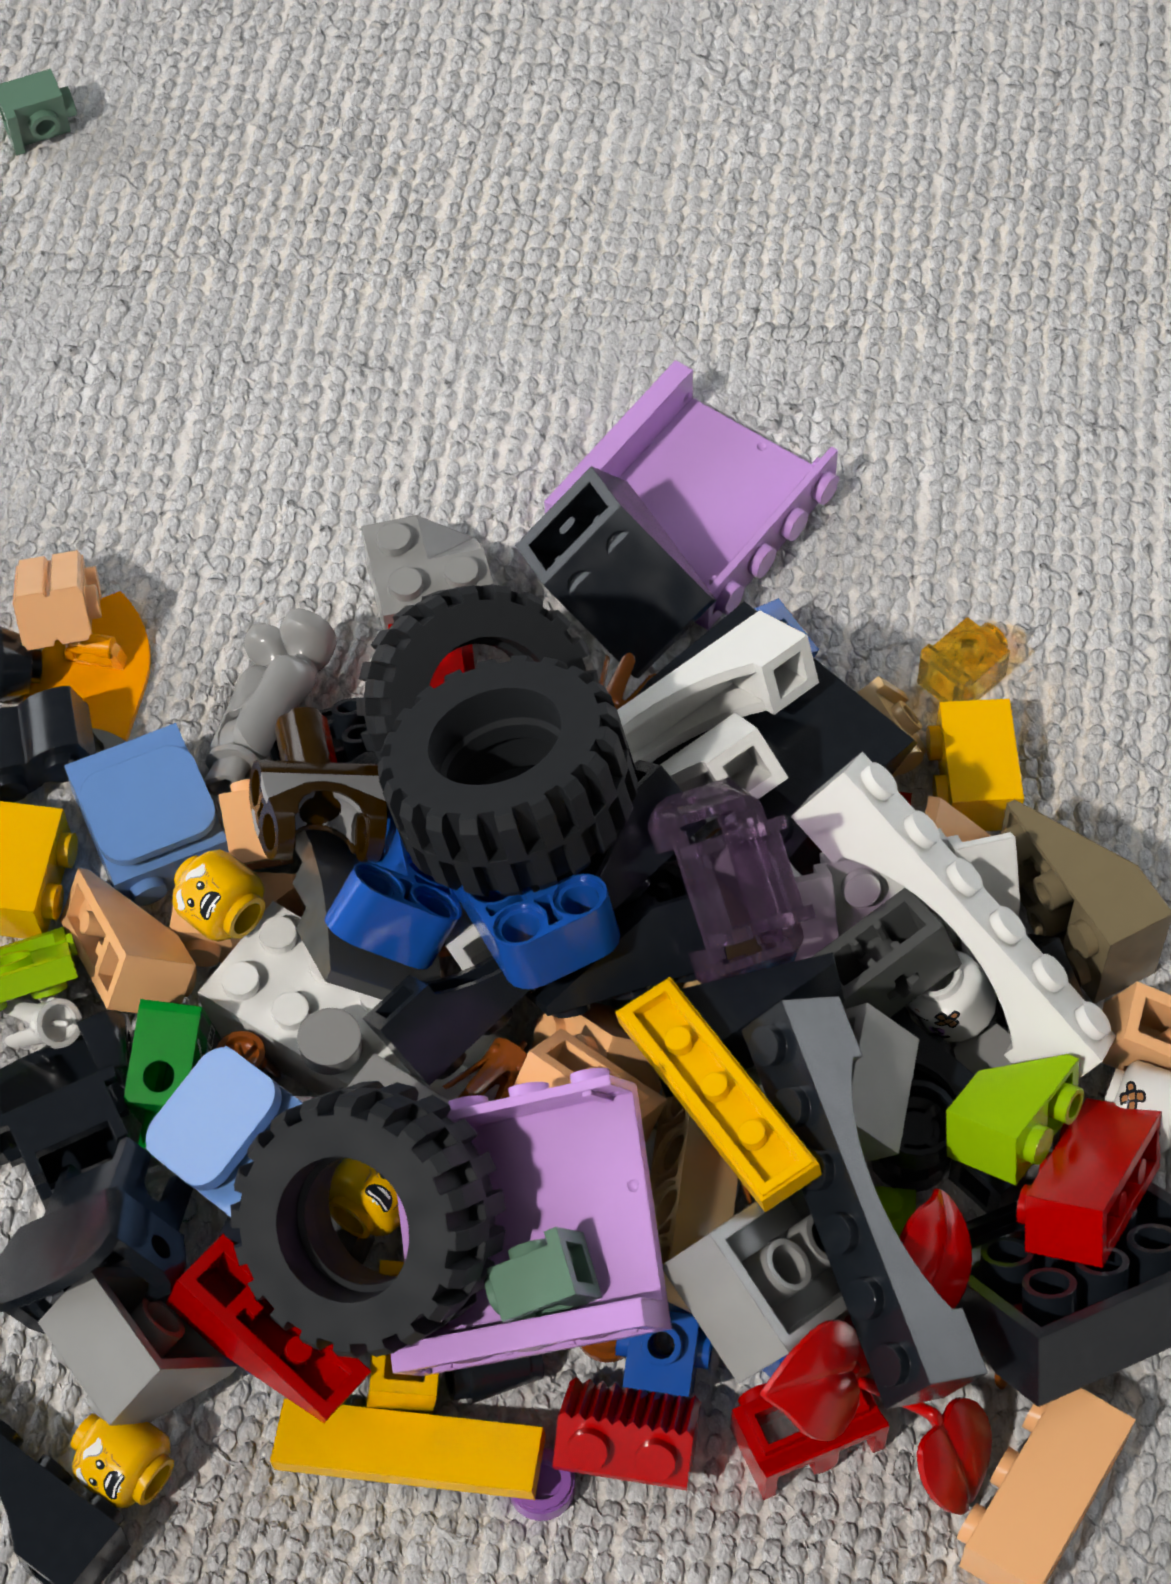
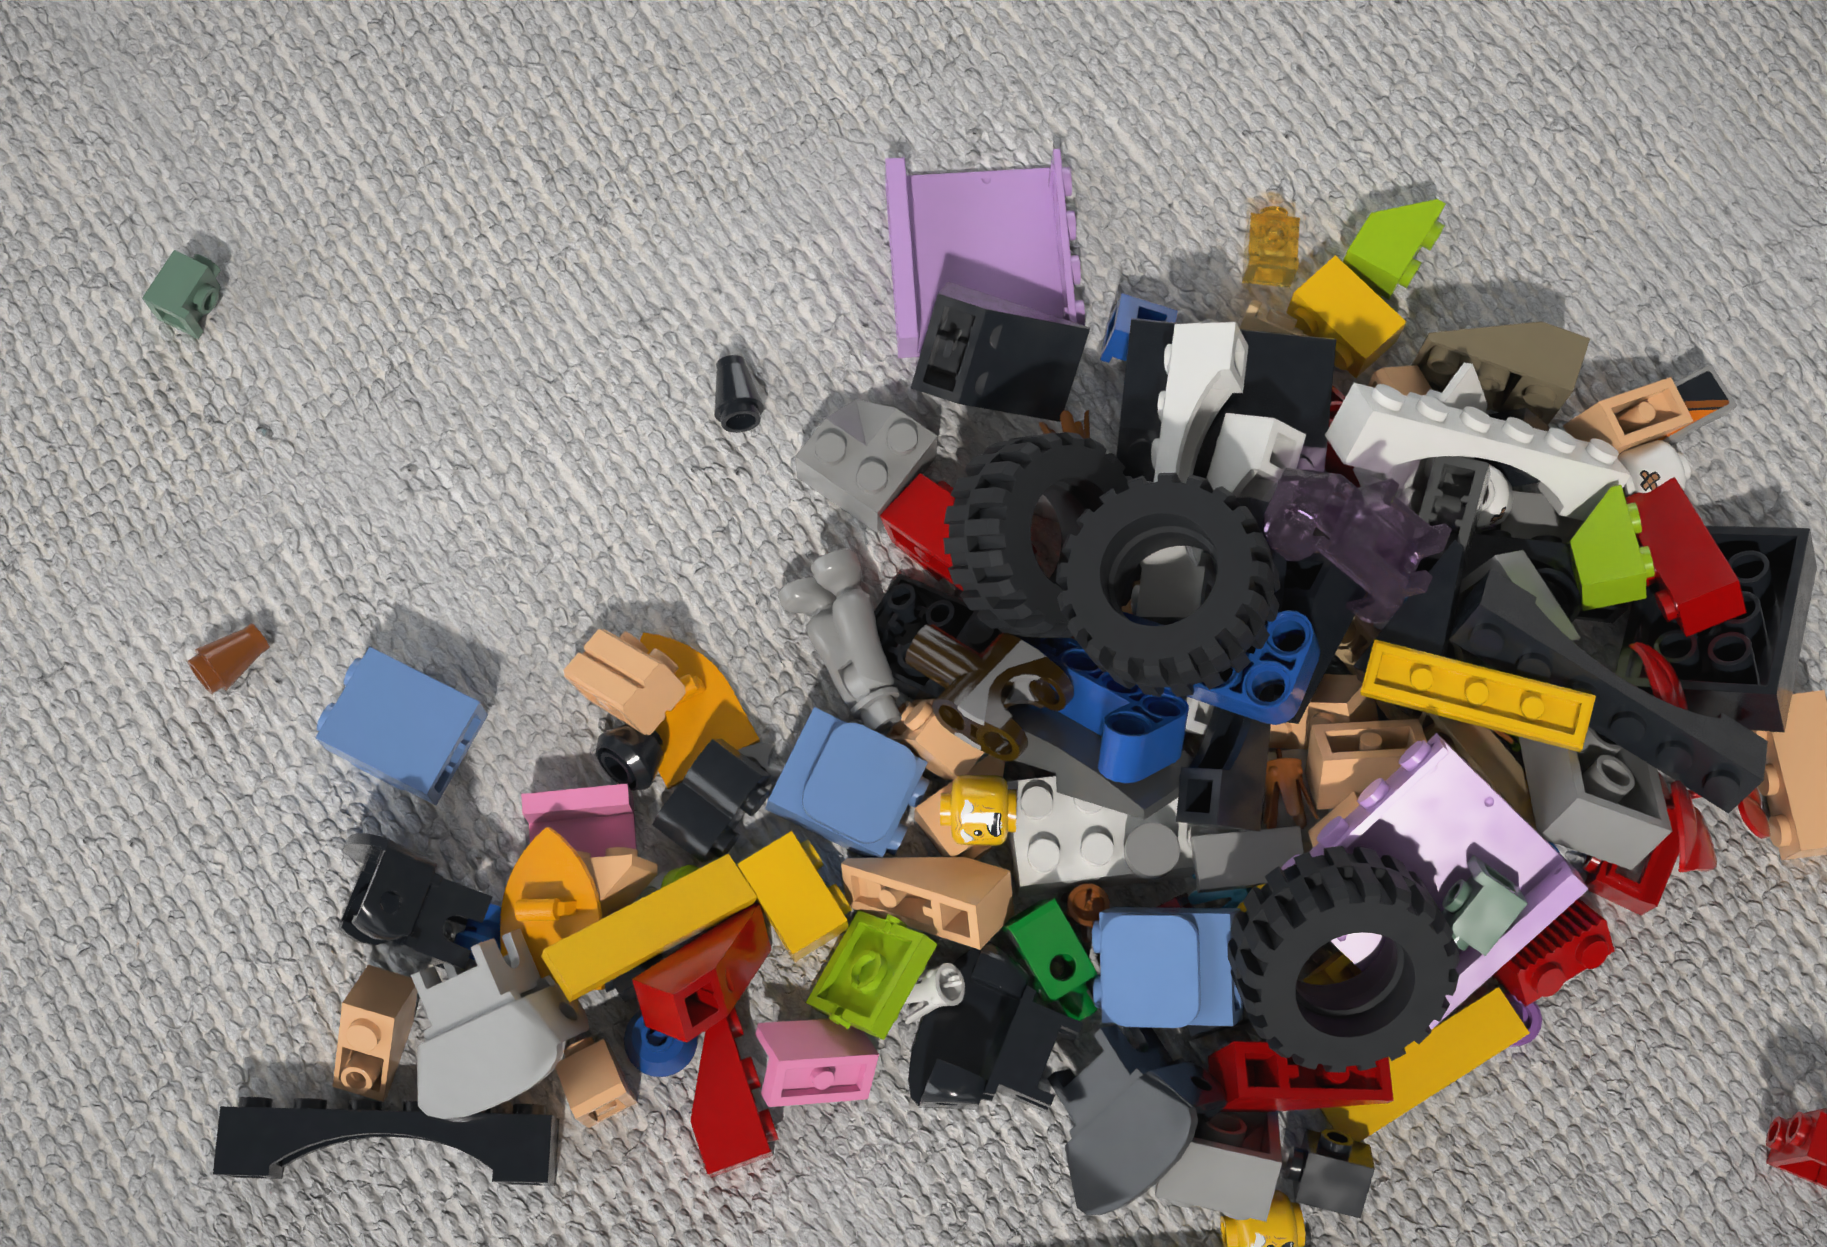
camera: 45 degrees left, 15 degrees up
(229, 1461) = (1331, 1172): none -> black brick
(374, 464) = (736, 396): none -> black cone
(1085, 736) = (1390, 241): none -> lime slope

